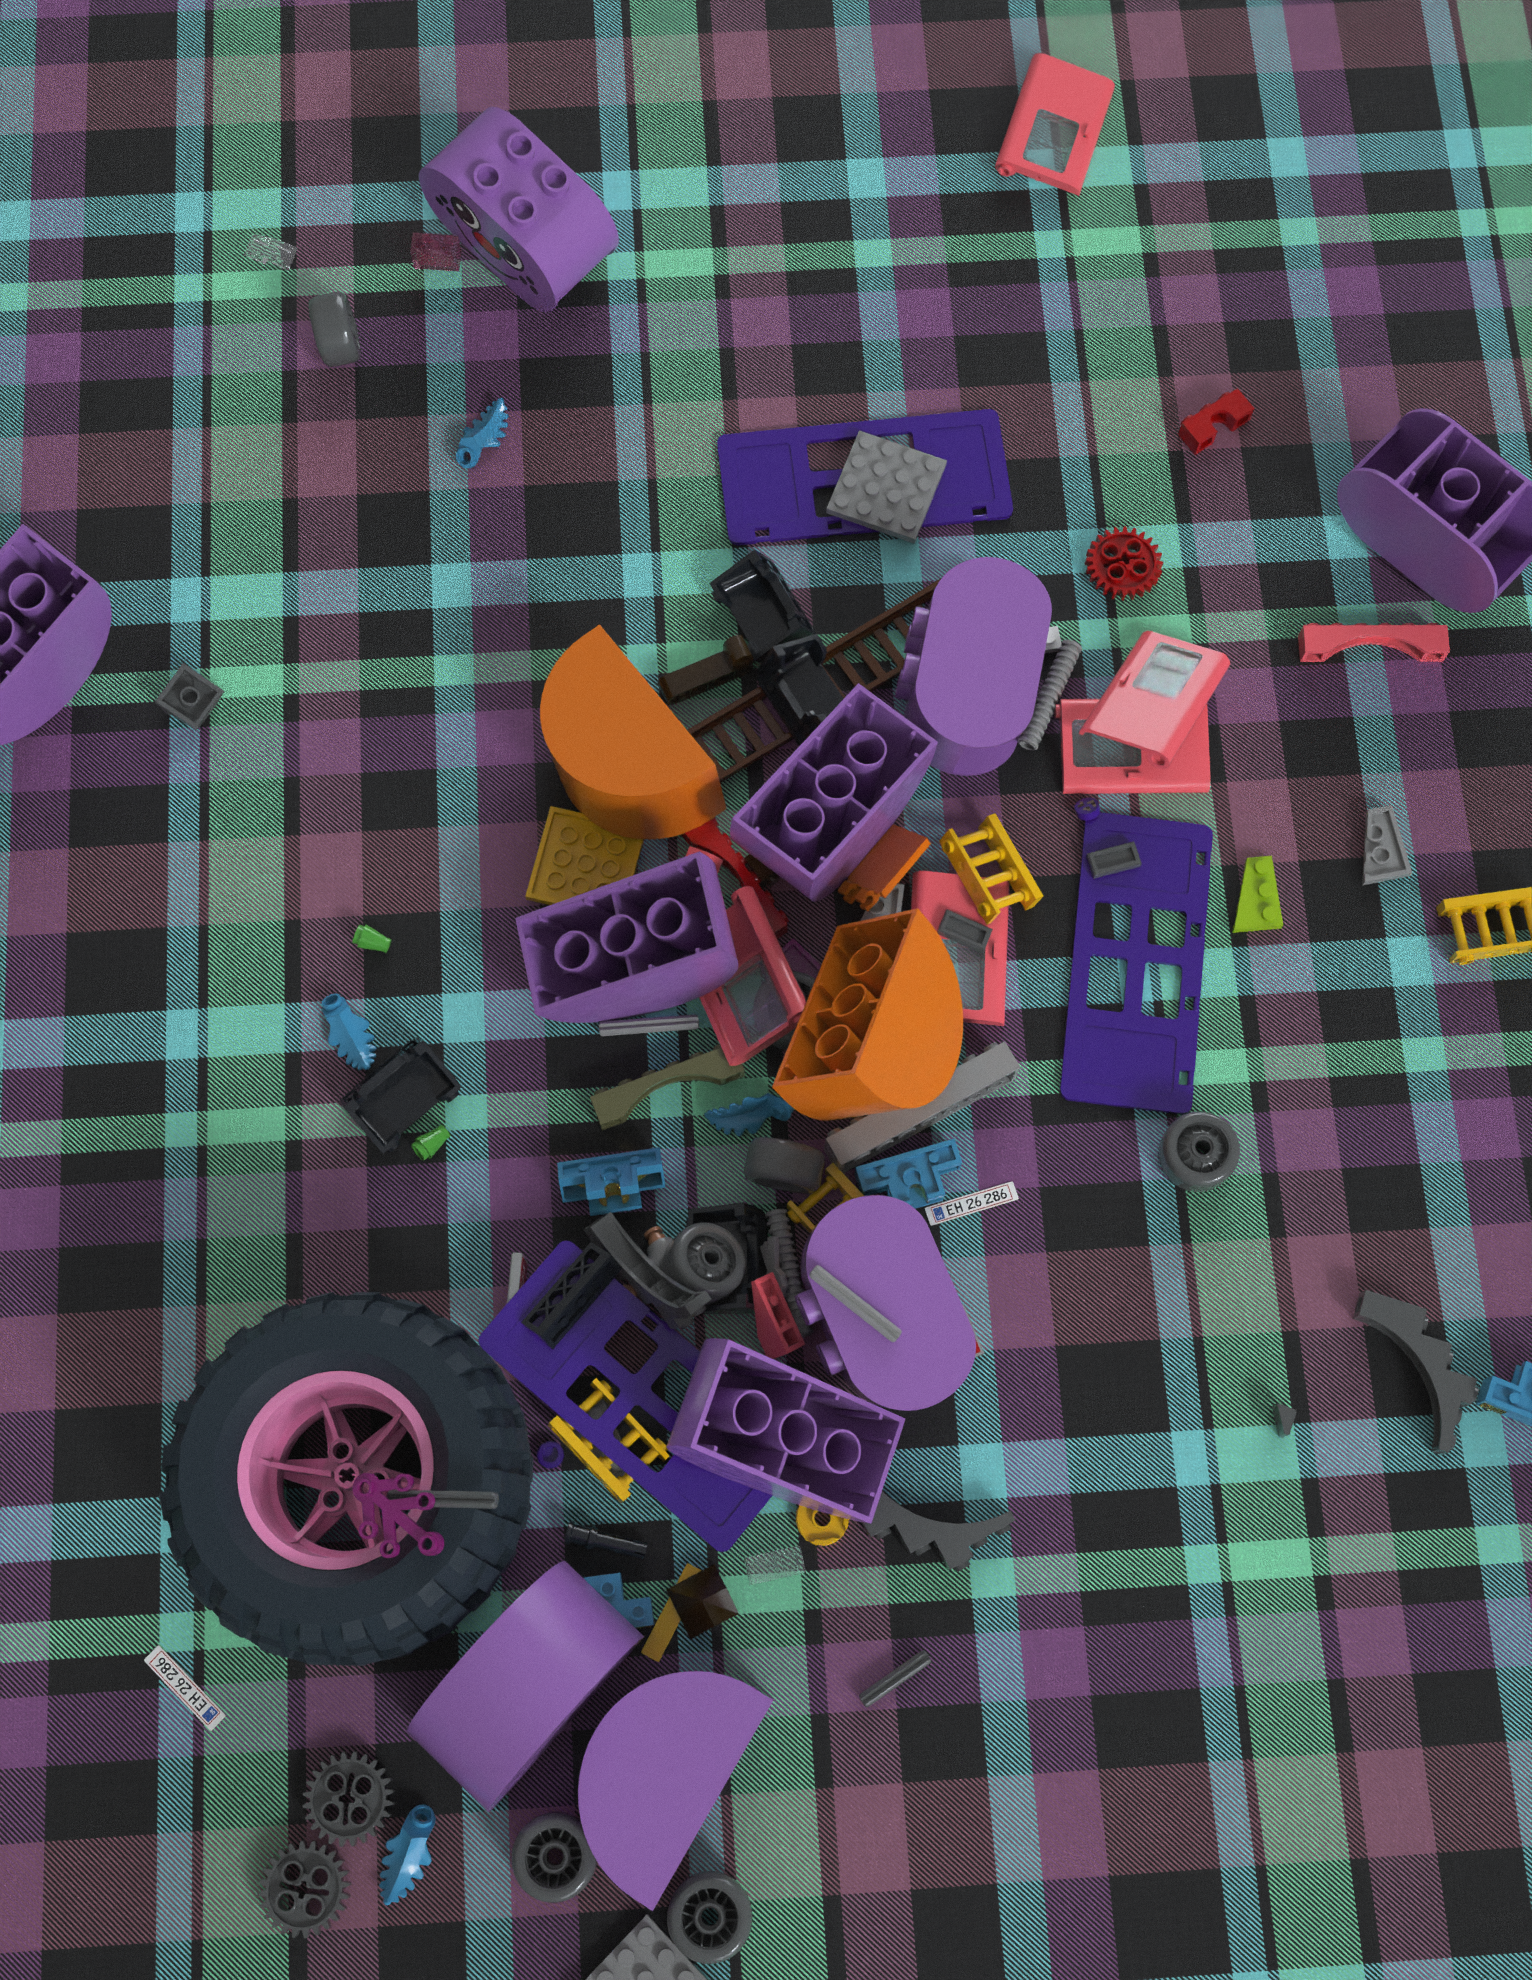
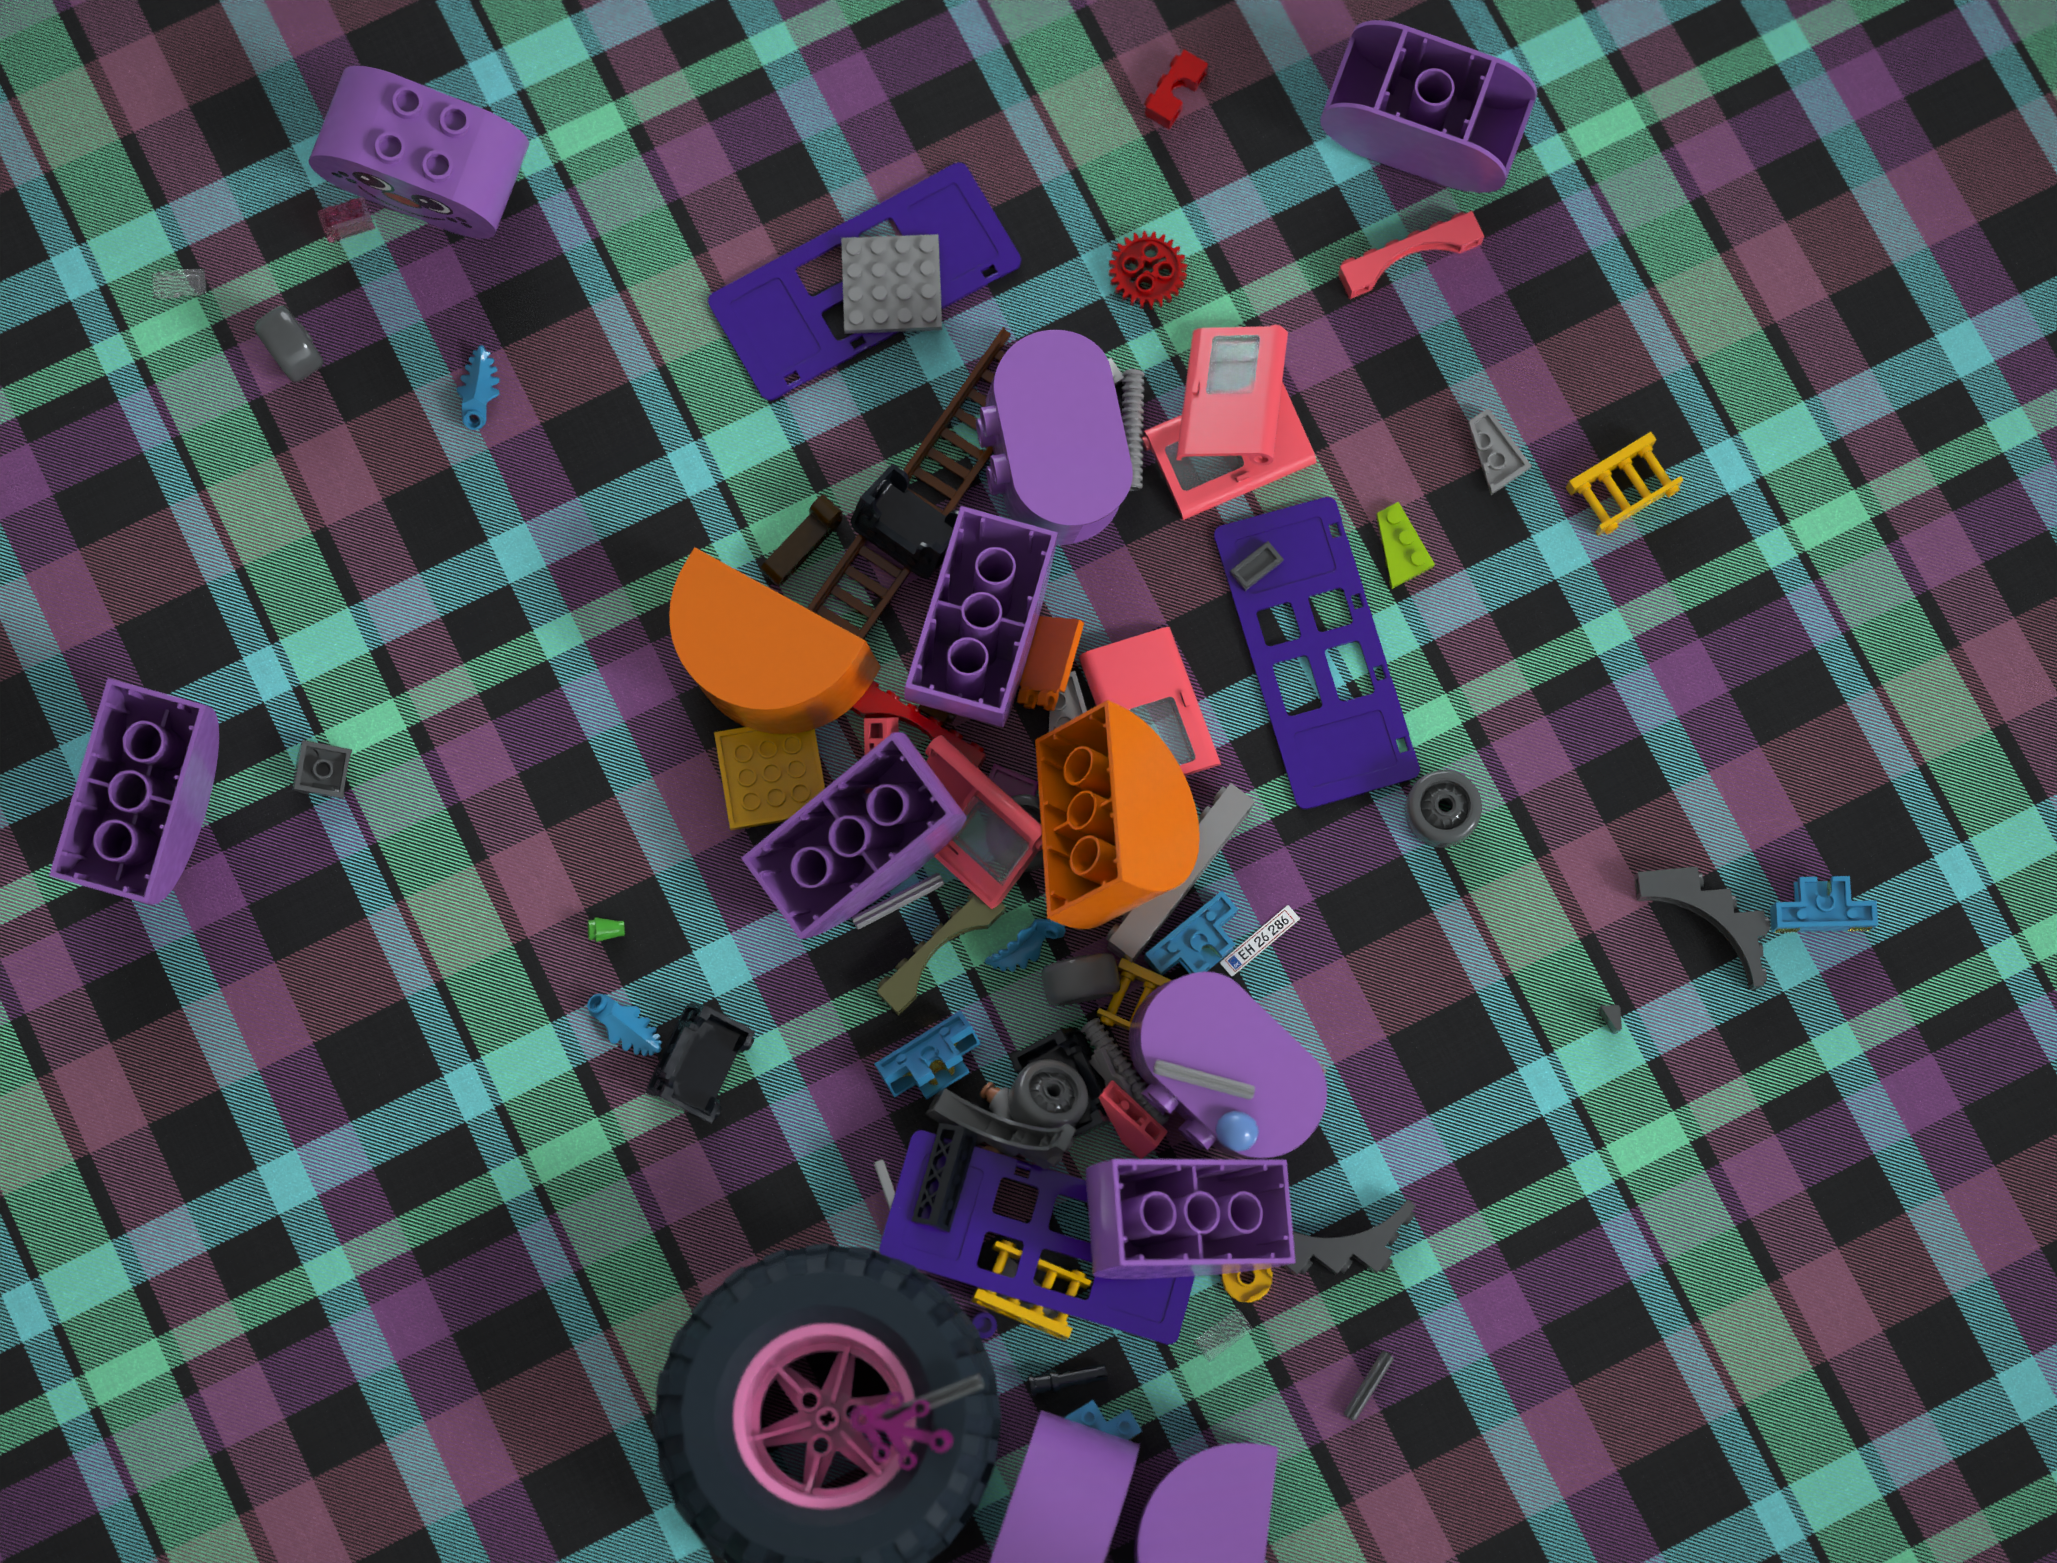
camera: 25 degrees left, 5 degrees up
(429, 1143) = (748, 1093): bright green cone -> none
(666, 1623) = (1152, 1414): yellow sticker -> none
(702, 1601) = (1174, 1393): dark brown slope -> none
(761, 604) = (827, 454): black windscreen -> none
(866, 1367) = (1237, 1131): none -> medium blue hair
(964, 931) = (1149, 692): dark grey tile -> none
(1008, 859) = (1162, 607): yellow fence -> none
(1087, 808) = (1212, 526): dark purple tile -> none

